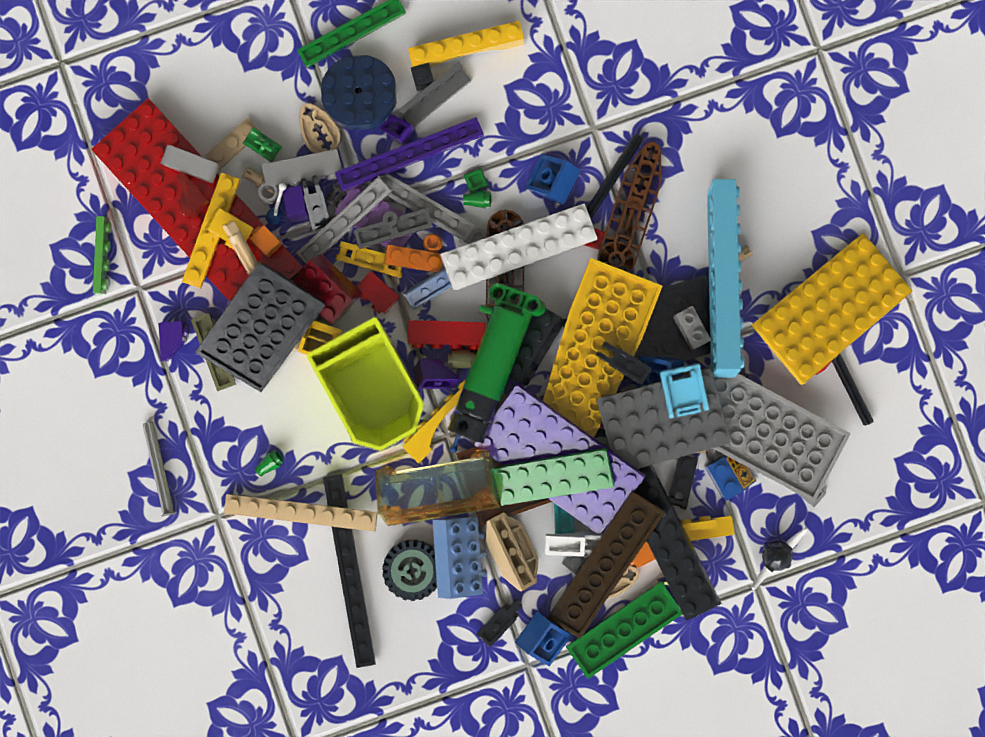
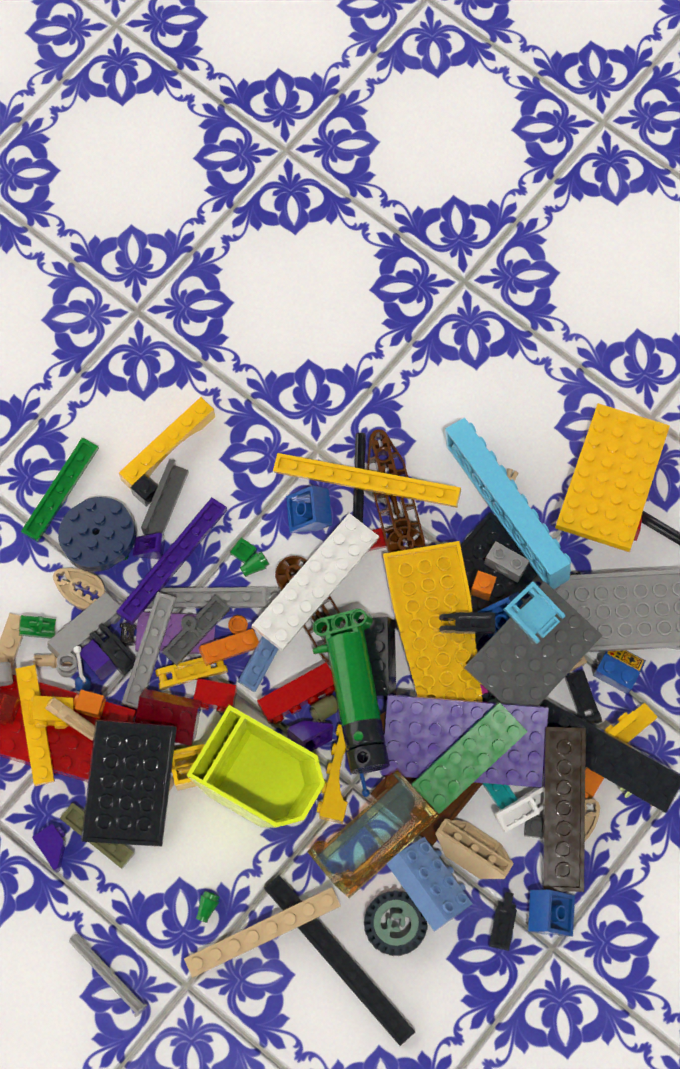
camera: 30 degrees left, 15 degrees down
(617, 184) = (367, 480): none -> yellow plate
(624, 630) = (617, 861): green plate -> none
(658, 337) = (483, 585): none -> orange brick

